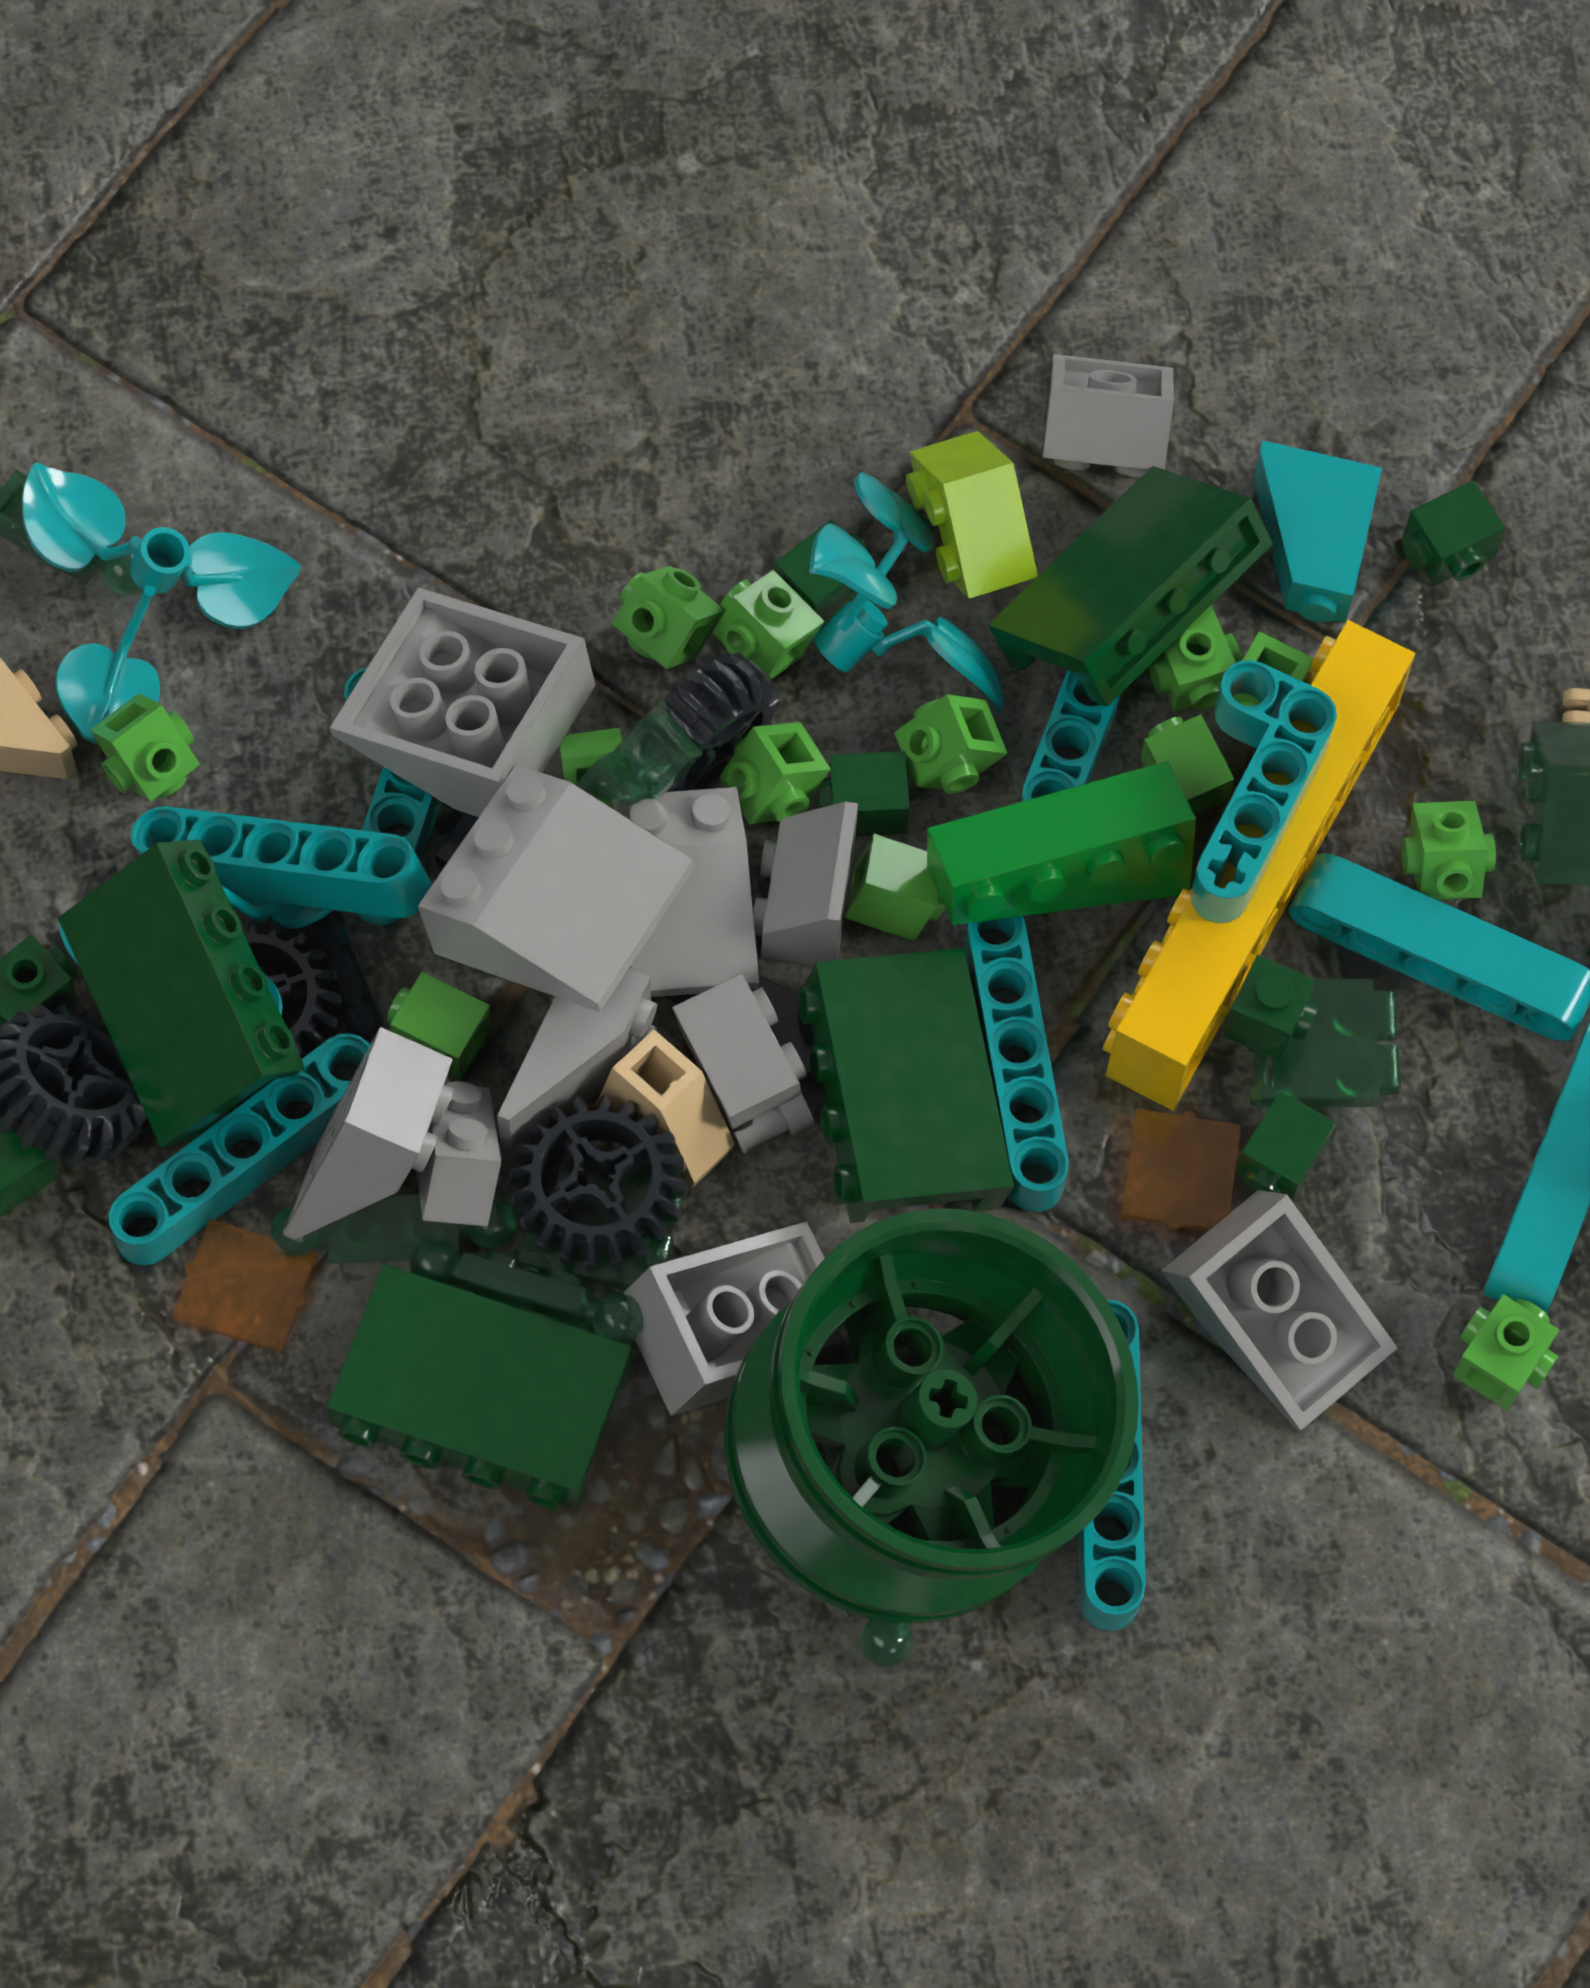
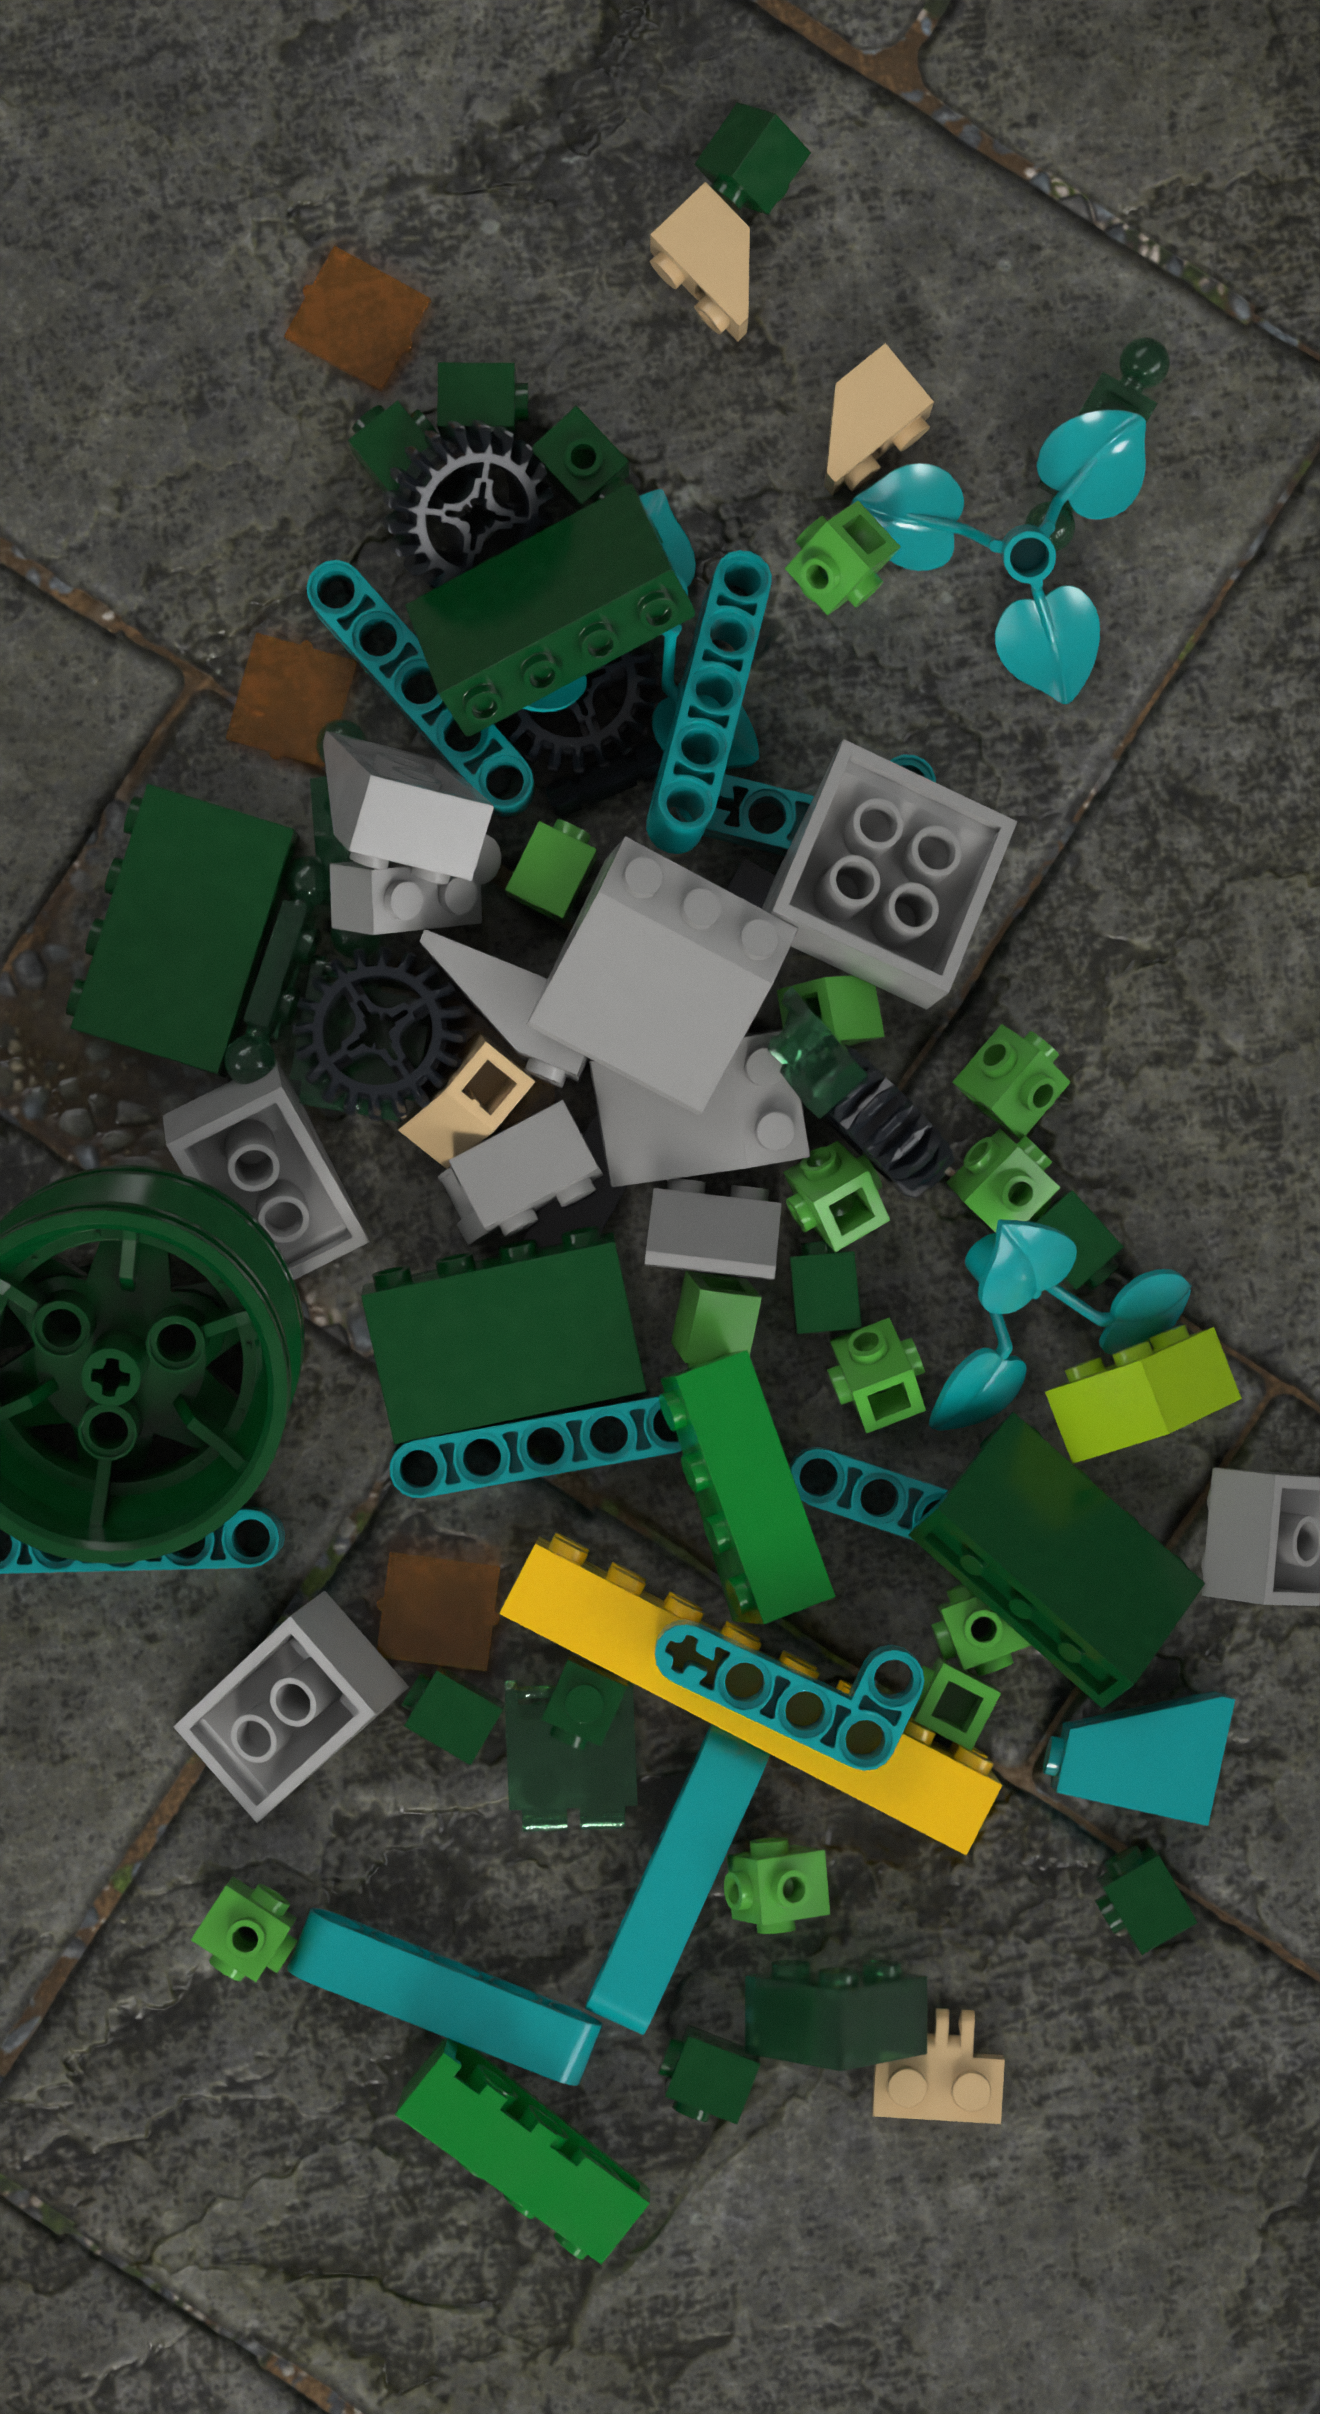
camera: 90 degrees right, 20 degrees up
(1193, 758) = (862, 1617): bright green brick -> none

